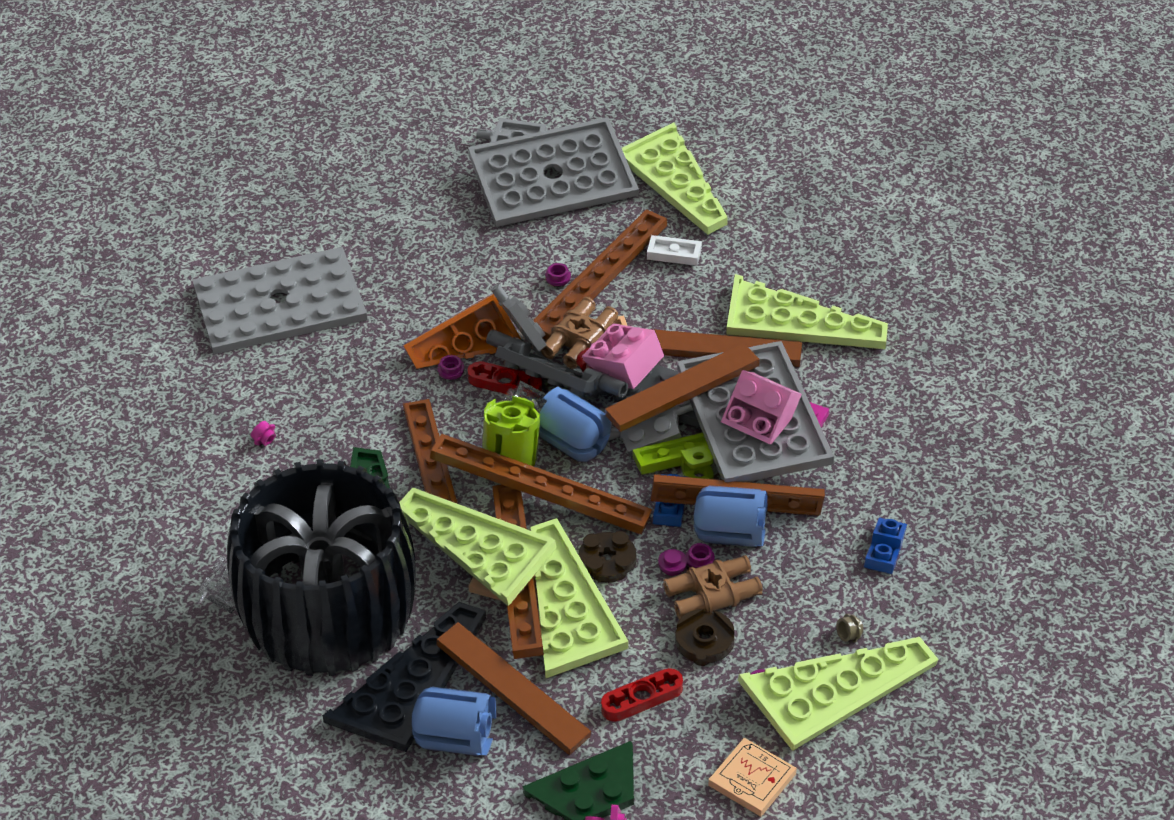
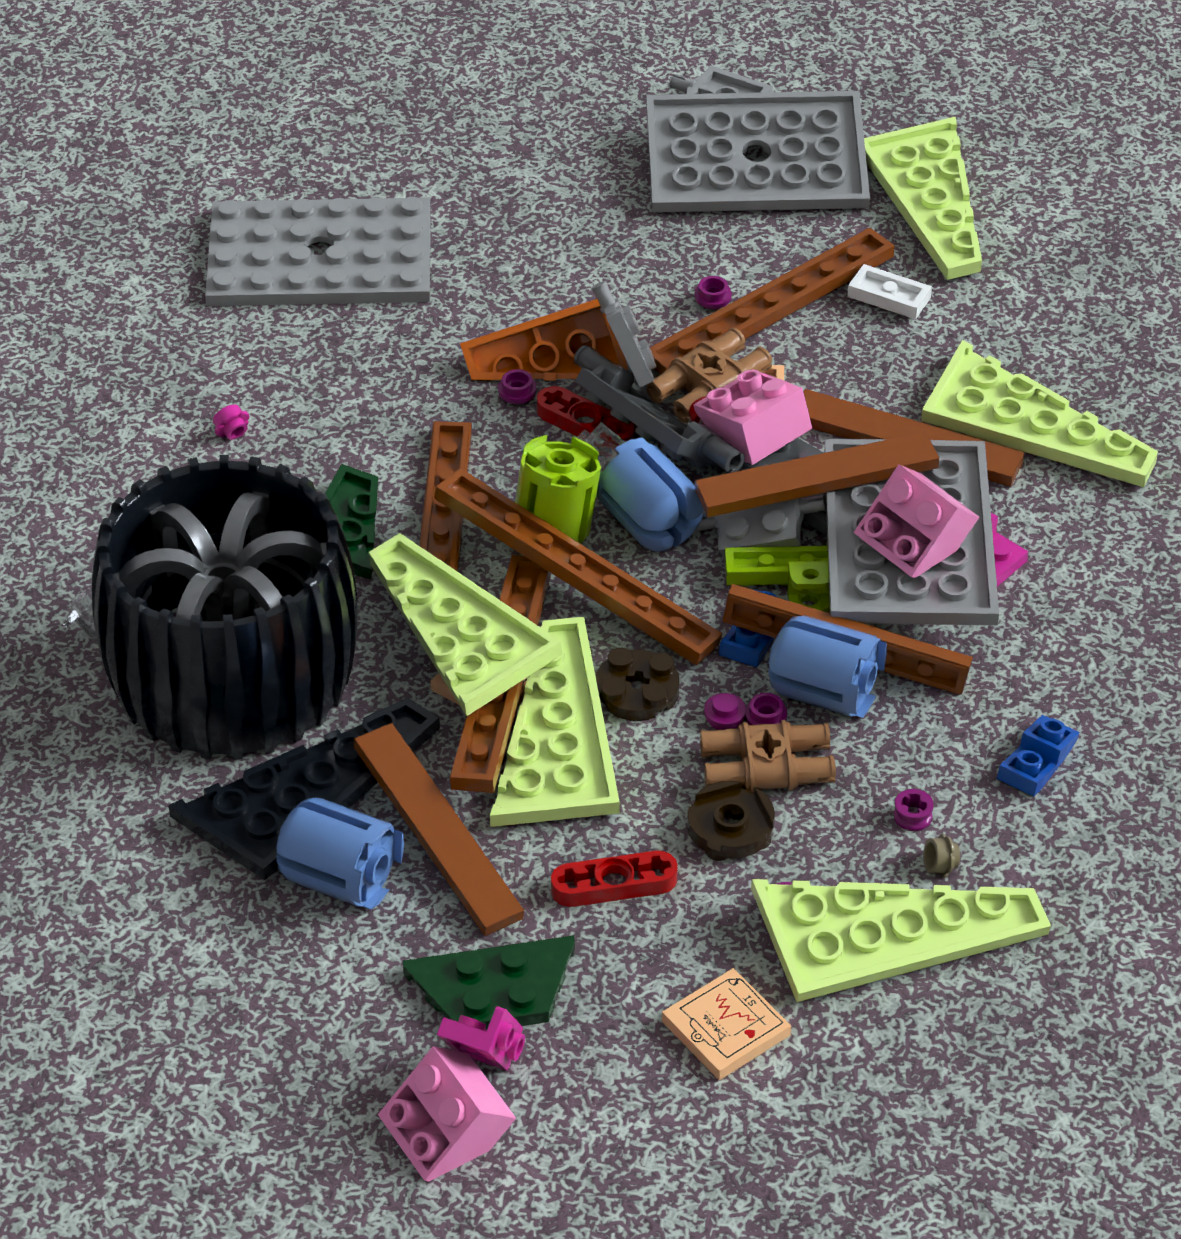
camera: 15 degrees right, 0 degrees up
(827, 599) = (913, 798): none -> magenta bush

